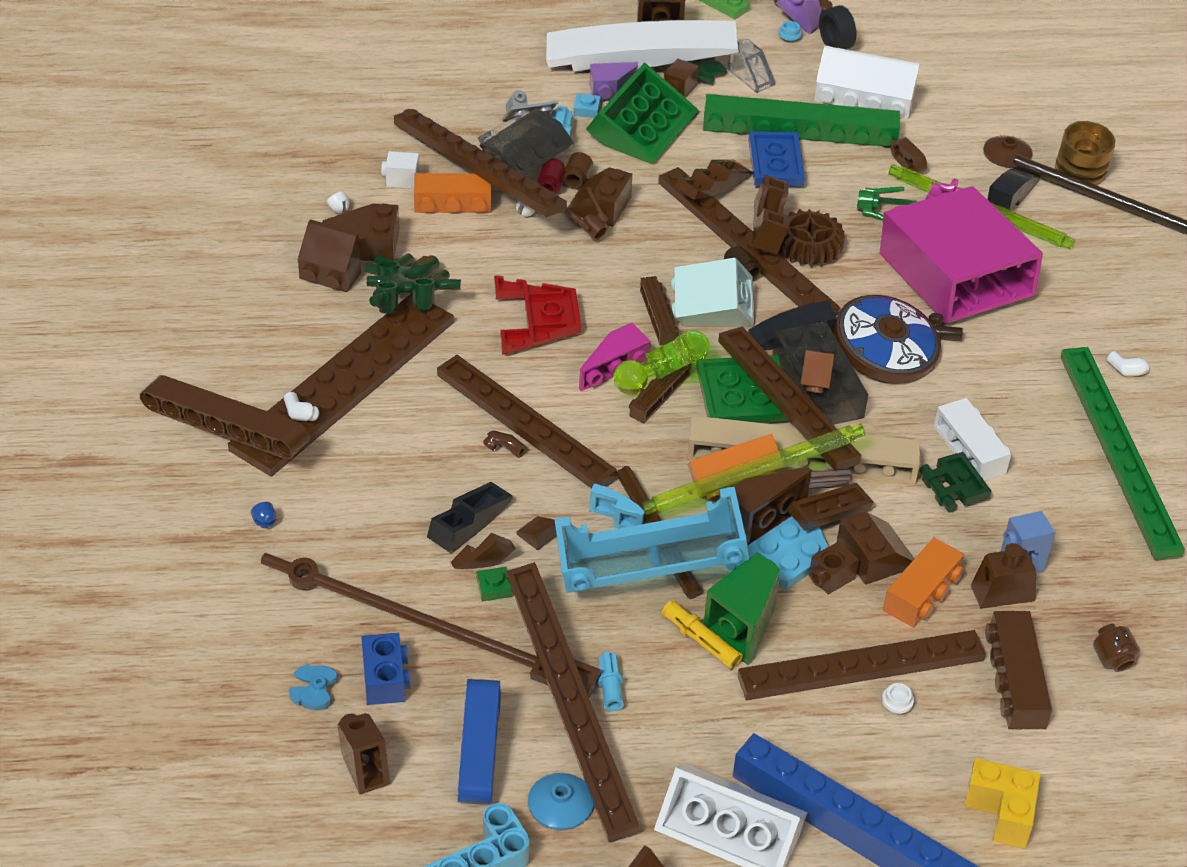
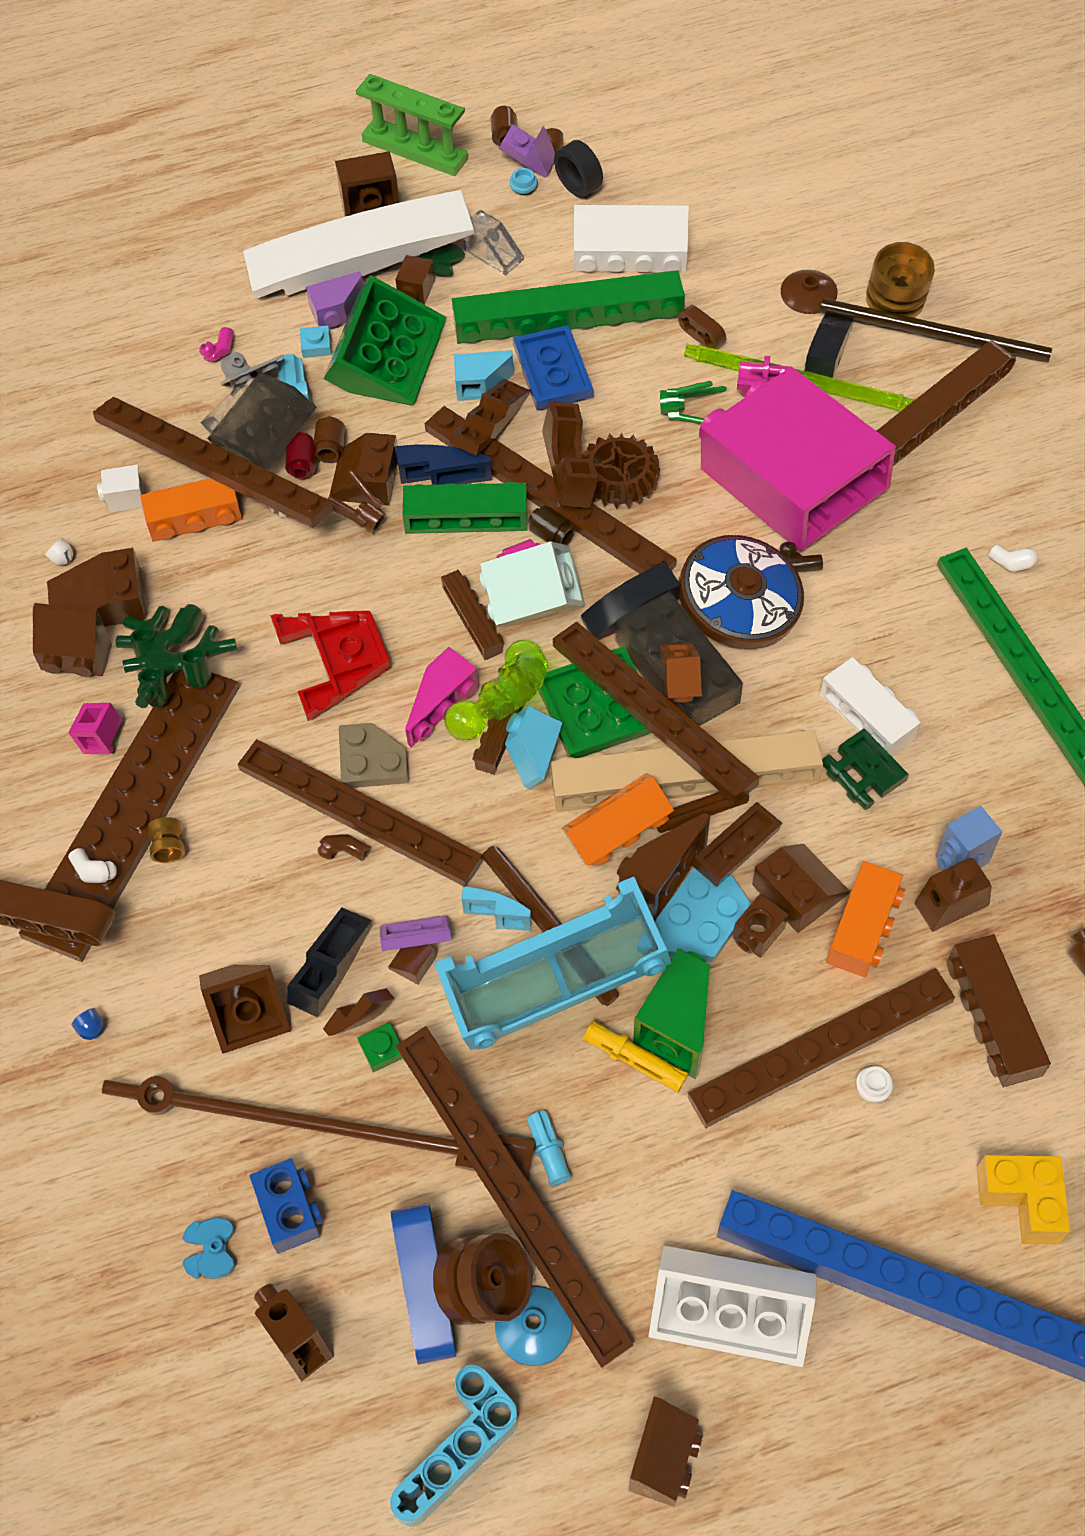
camera: 10 degrees left, 15 degrees up
(331, 321) = (95, 728): none -> dark pink brick
(363, 406) = (166, 841): none -> pearl gold wheel
(392, 528) = (243, 1005): none -> reddish brown slope
(501, 96) = (221, 348): none -> dark pink arm
(528, 744) = (482, 1279): none -> reddish brown wheel
(544, 510) = (415, 933): none -> medium lavender tile
(546, 388) = (370, 757): none -> dark tan plate
(664, 205) = (441, 465): none -> dark blue slope
(674, 237) = (464, 508): none -> green brick
(680, 401) = (531, 743): none -> medium azure slope
(715, 147) = (481, 371): none -> medium azure slope
(753, 468) = (642, 826): clear neon green piece -> none
(1101, 244) = (947, 398): none -> reddish brown beam

